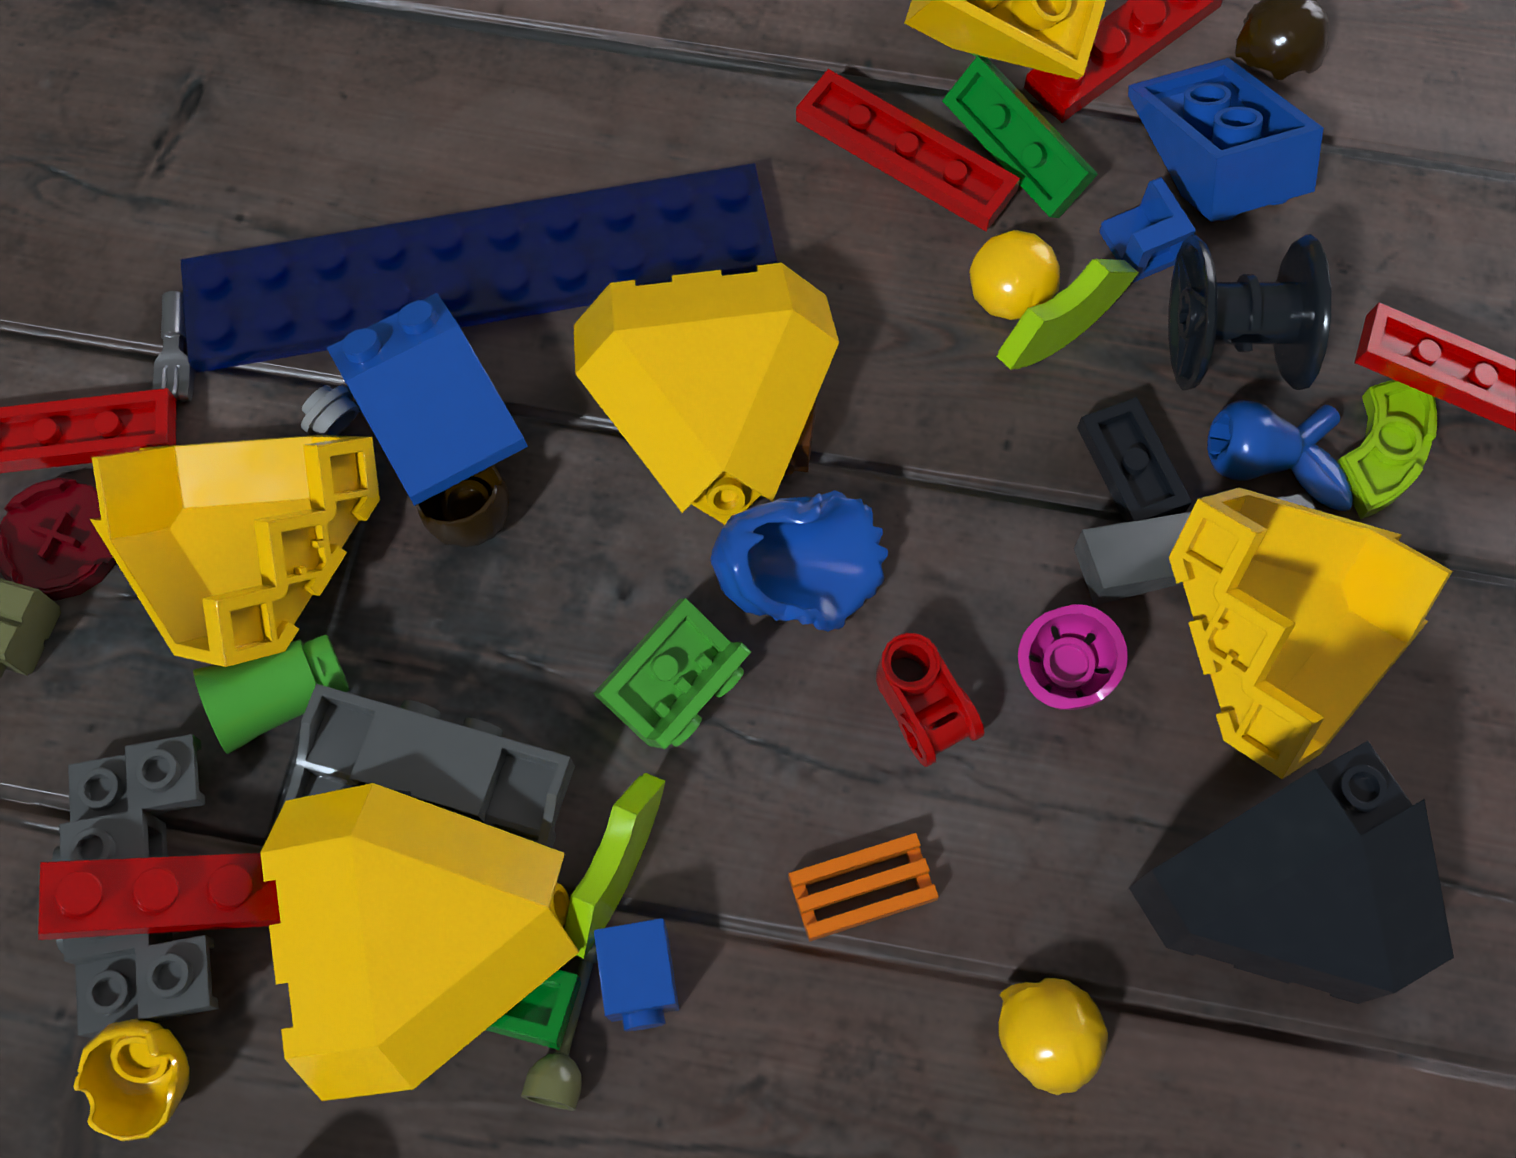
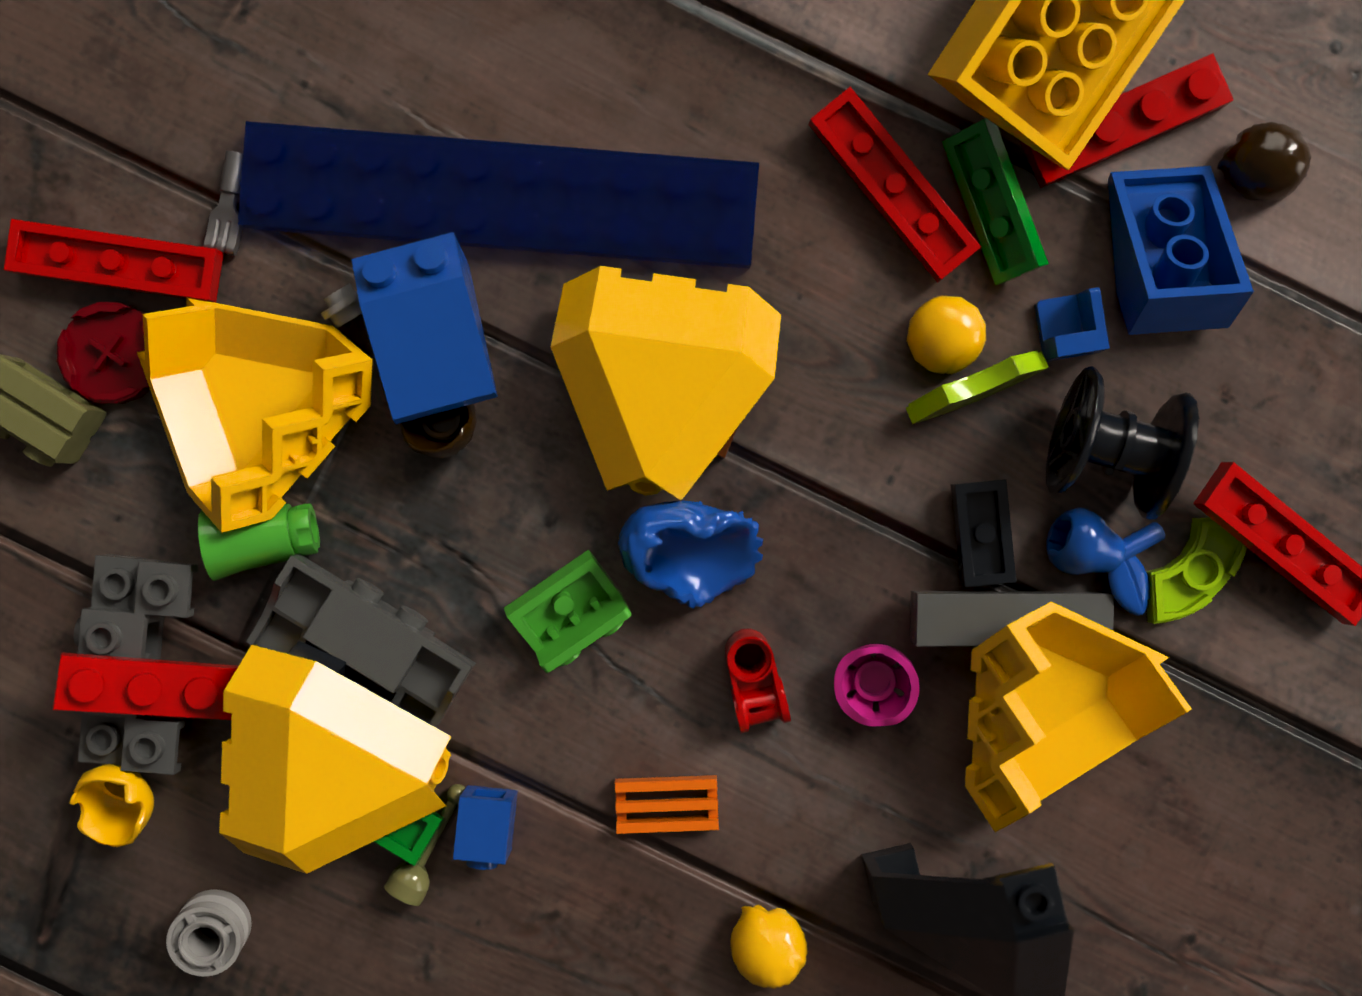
camera: 15 degrees right, 20 degrees up
(614, 861) = (487, 742): lime tile -> none

